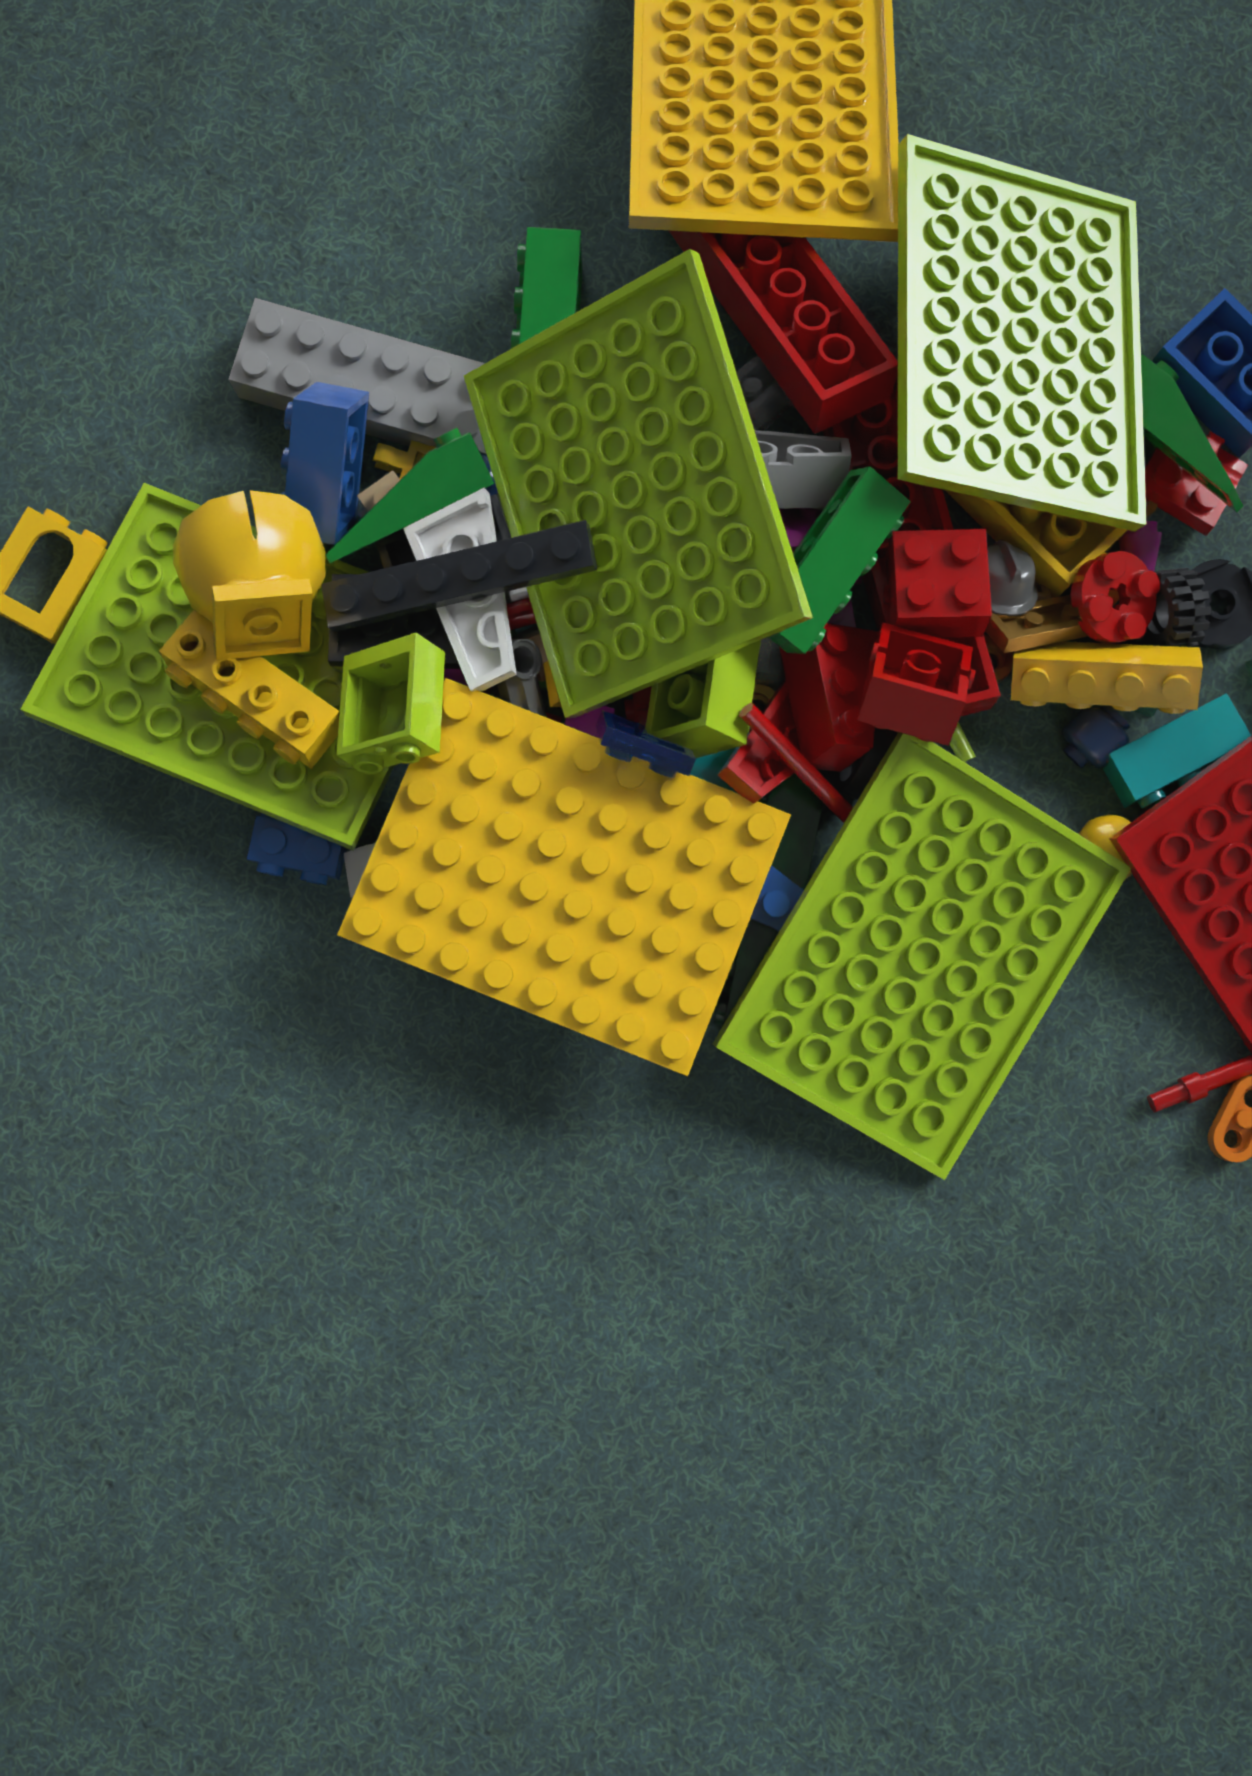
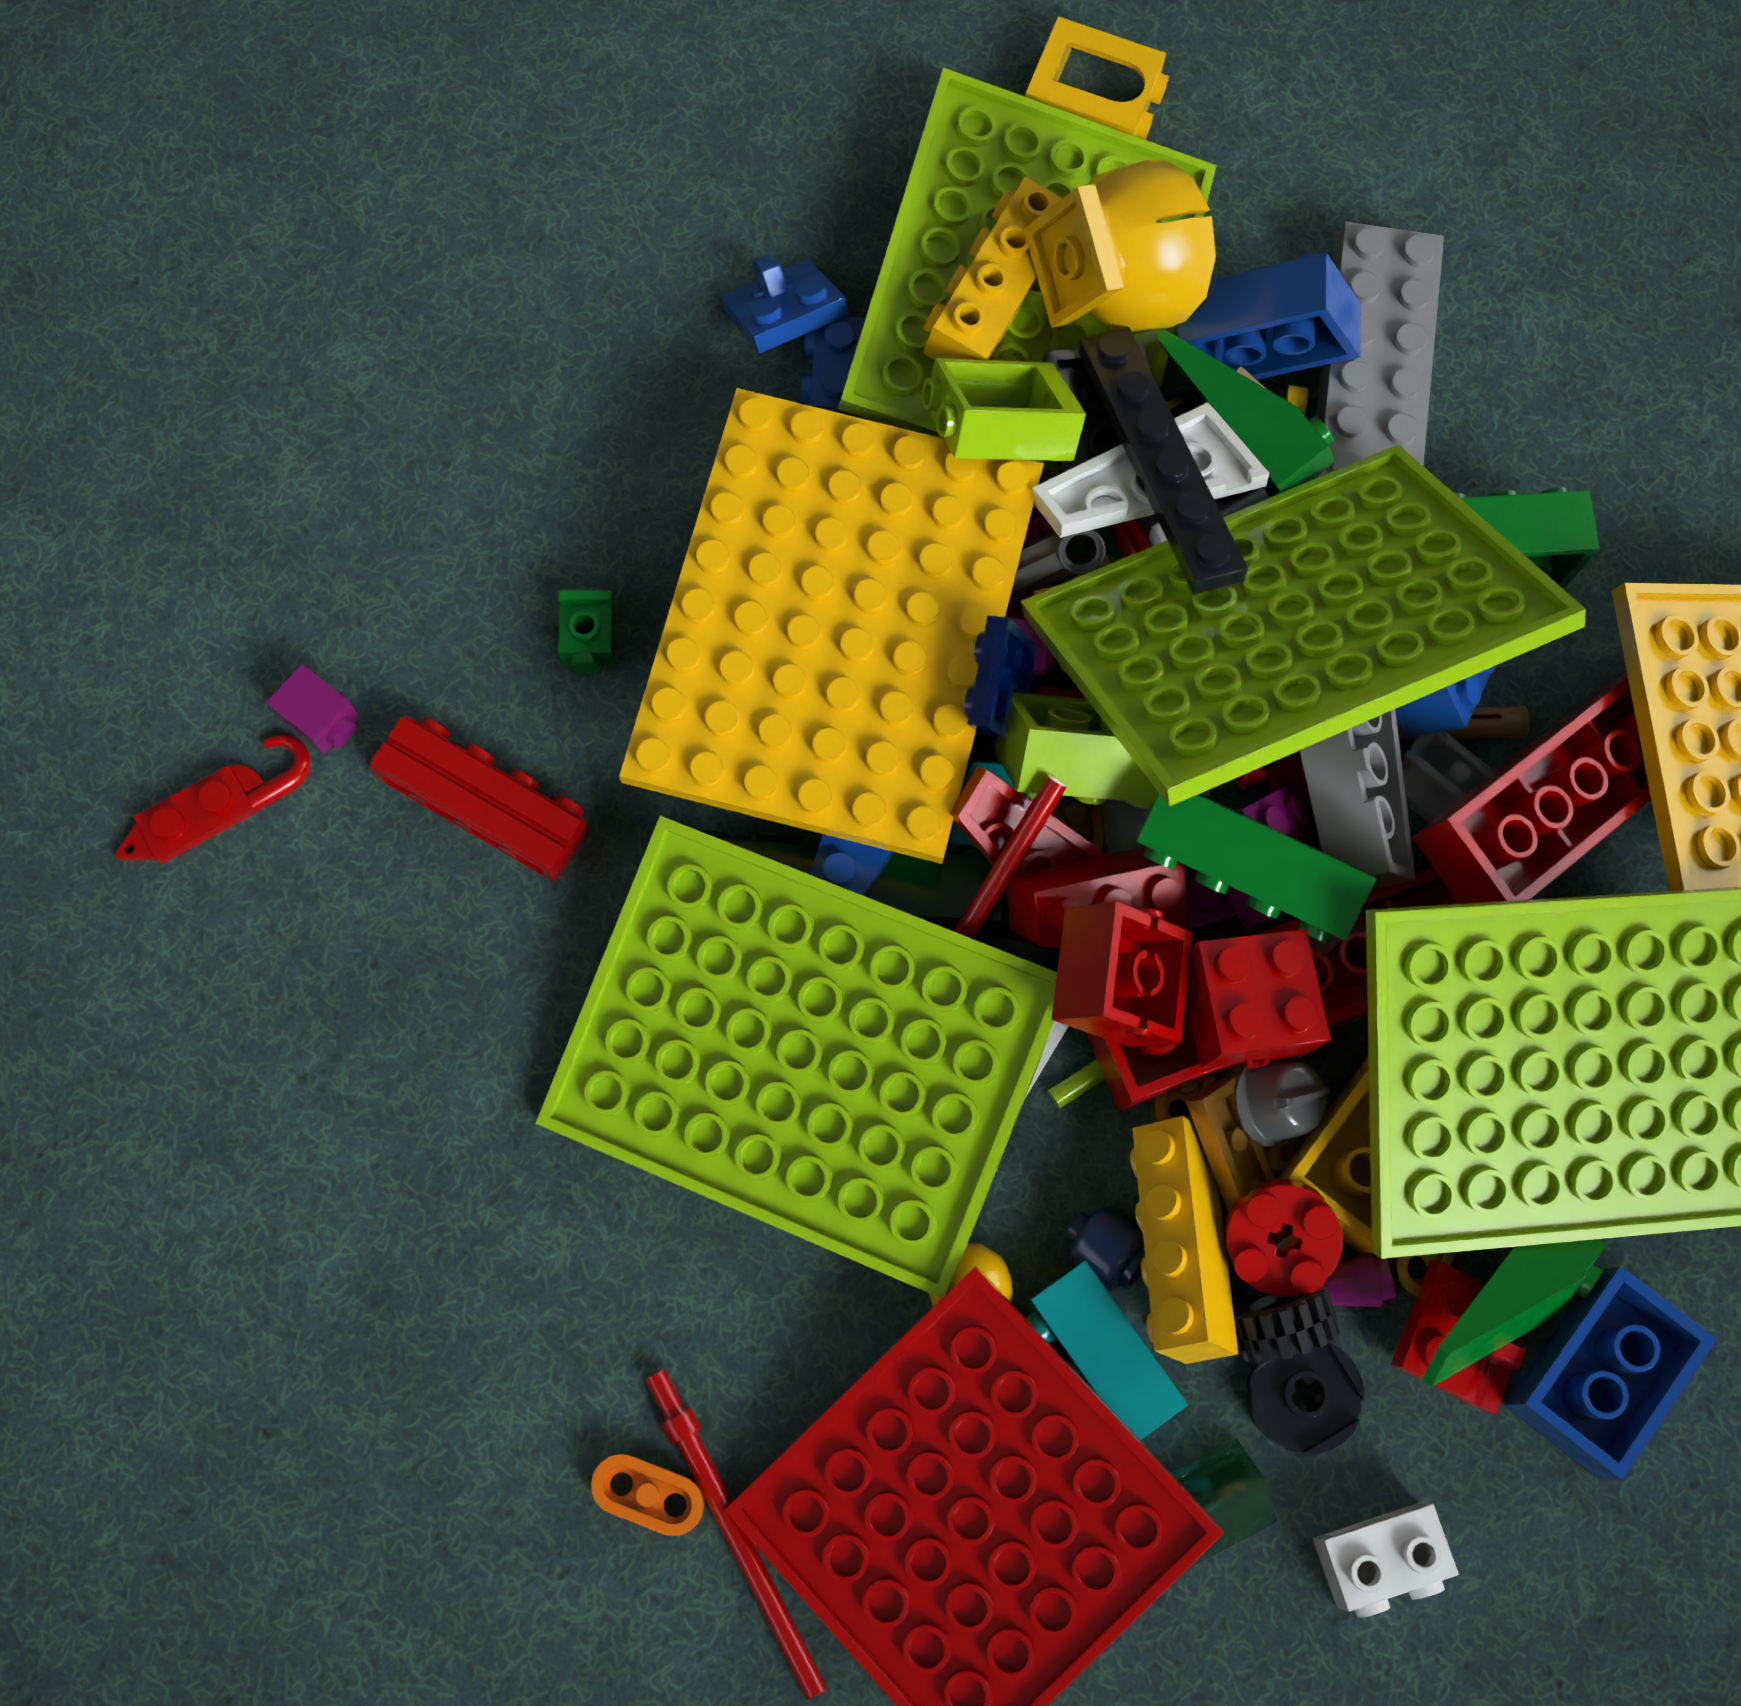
camera: 80 degrees right, 10 degrees down
(230, 887) = (783, 303): none -> blue hinge
(501, 1096) = (587, 609): none -> green brick
(563, 1340) = (314, 710): none -> magenta brick
(633, 1435) = (211, 806): none -> red plate
(659, 1203) = (480, 797): none -> red brick

